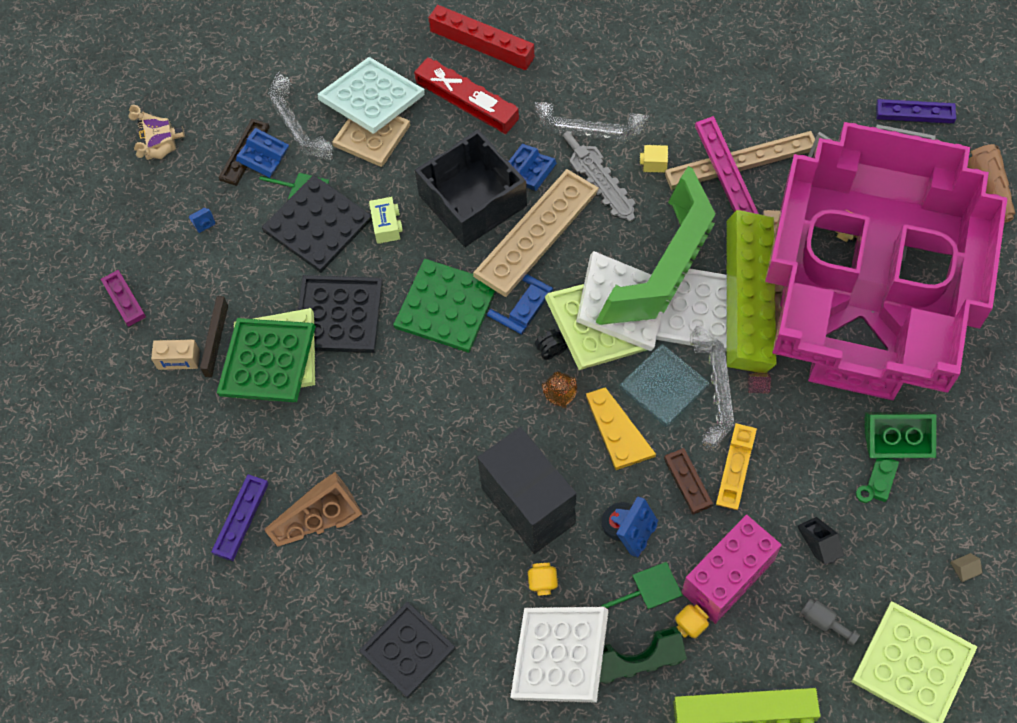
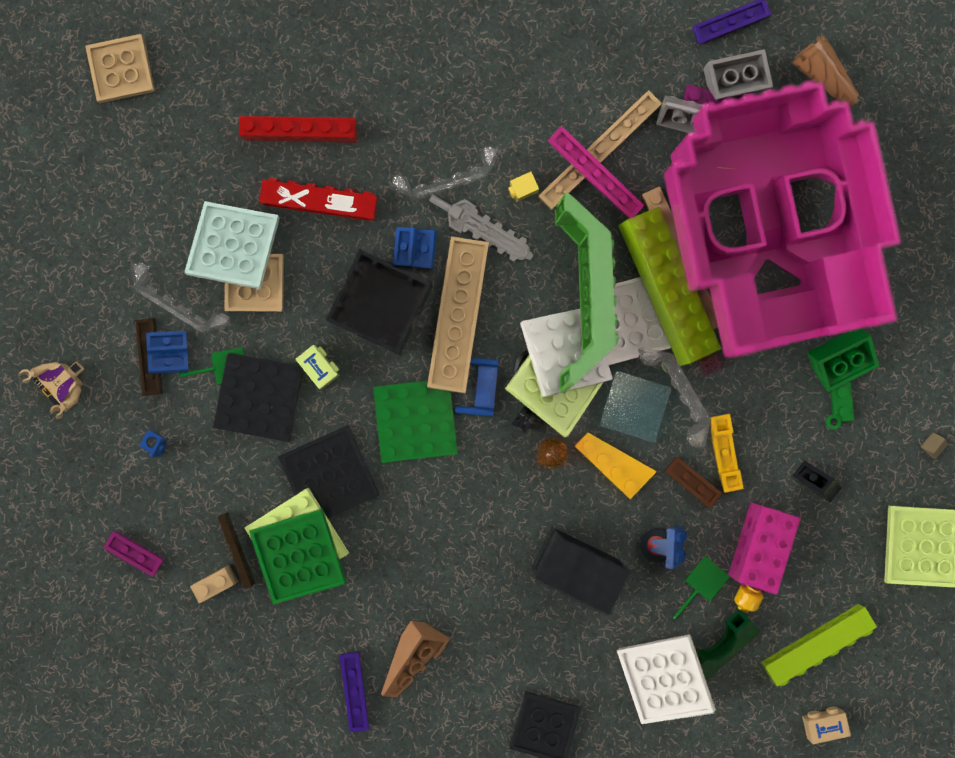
camera: 30 degrees left, 25 degrees up
(542, 578) = (620, 621): yellow head -> none
(825, 619) = (847, 544): dark grey piece -> none

